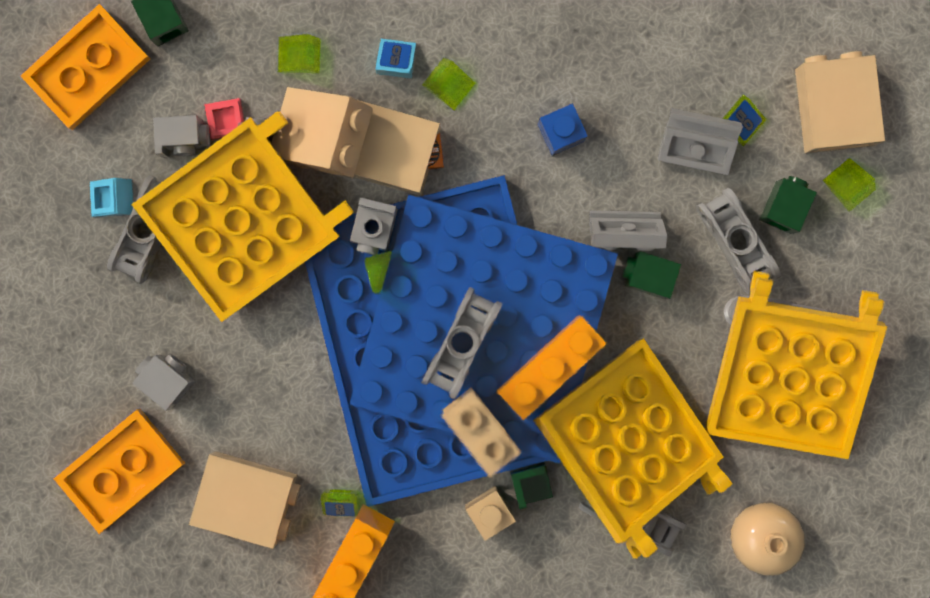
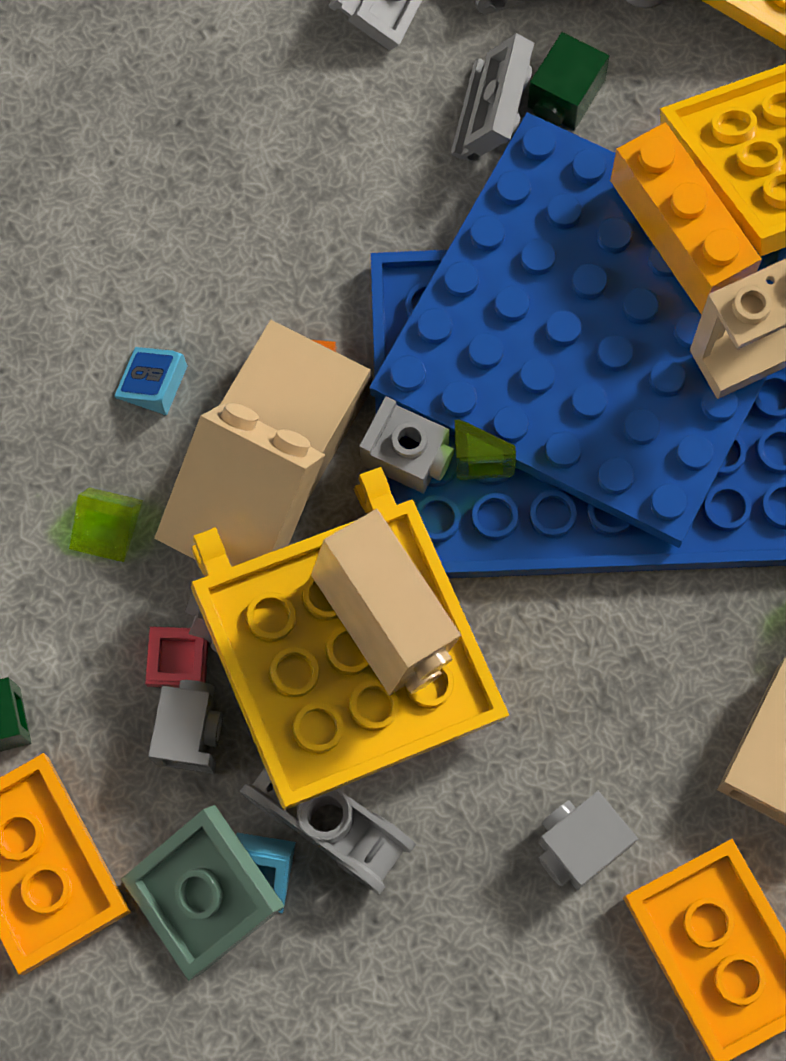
camera: 70 degrees left, 15 degrees down
(85, 168) = (202, 892): none -> sand green plate
(250, 236) = (385, 604): none -> tan brick
(449, 83) = (208, 312): clear neon green slope -> none
(475, 325) = (651, 366): light grey piece -> none
(562, 129) = (323, 159): blue brick -> none

